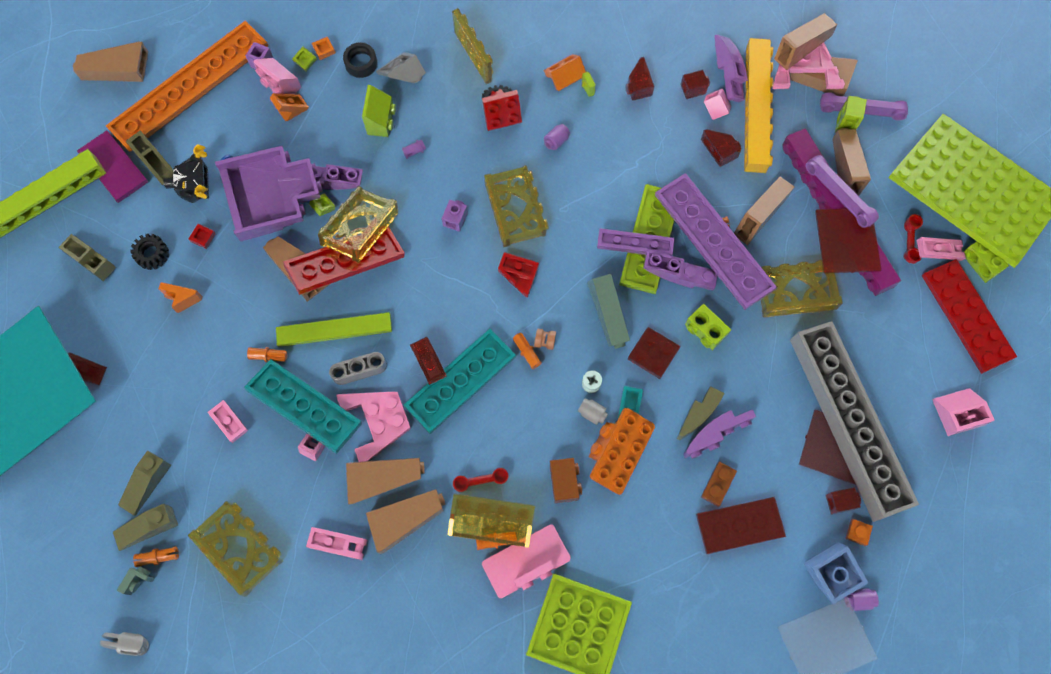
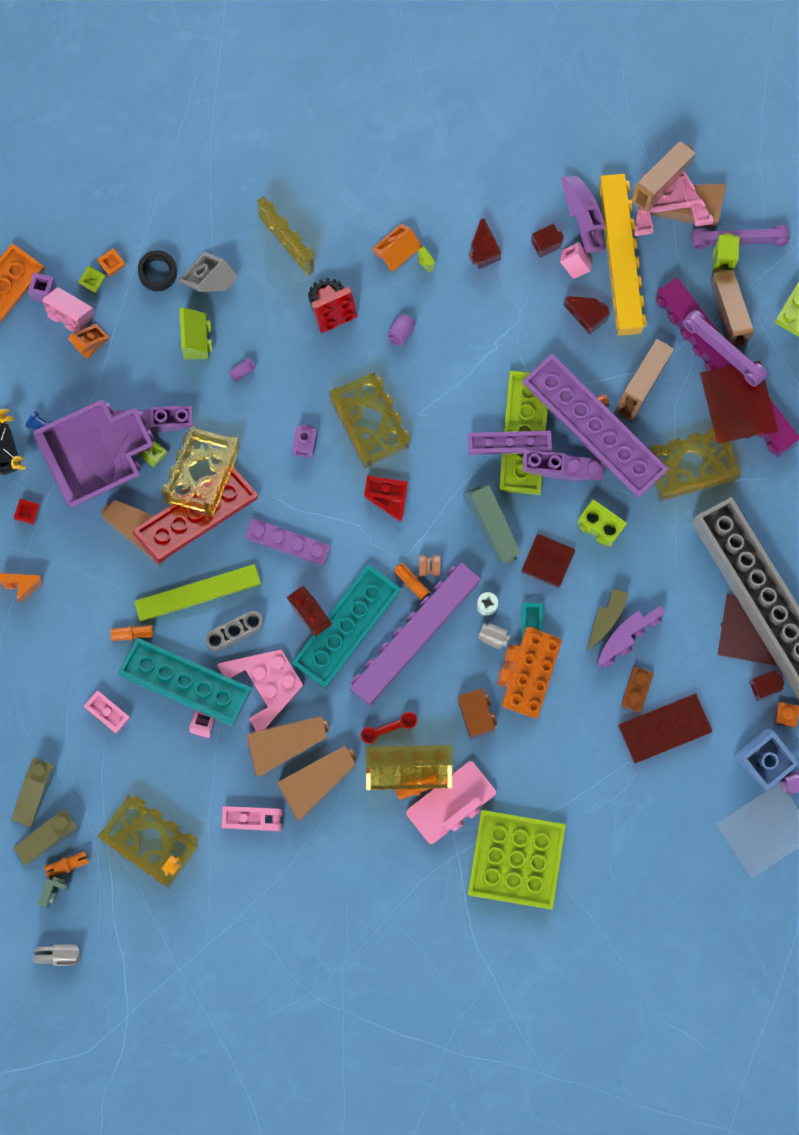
camera: 15 degrees left, 5 degrees up
(248, 576) = (171, 865): none -> light orange plate
(423, 298) = (287, 542): none -> medium lavender plate
(520, 398) = (415, 634): none -> medium lavender brick

